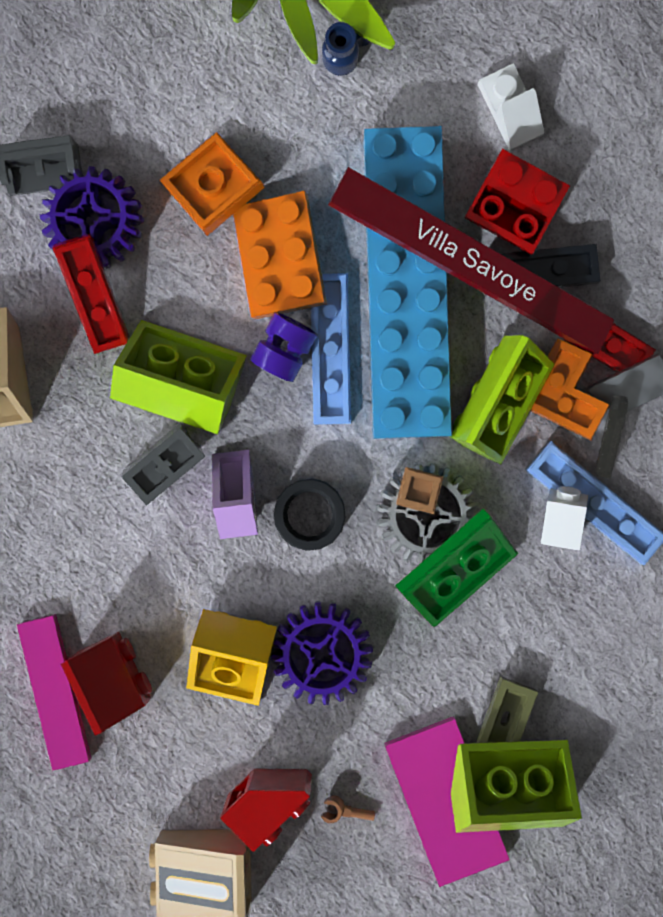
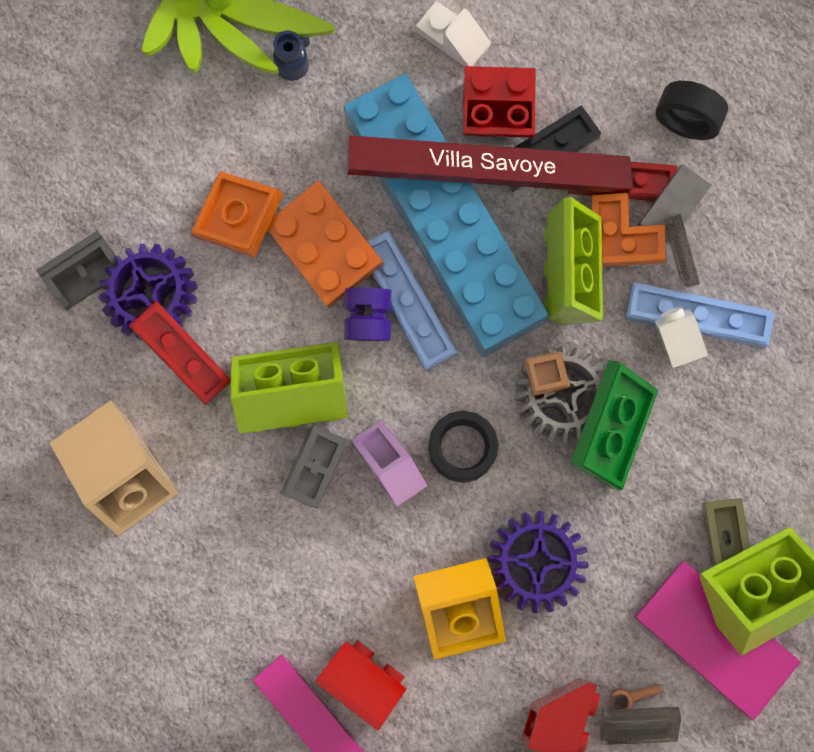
camera: 30 degrees left, 10 degrees down
(336, 840) = (640, 725): none -> clear smoke tile

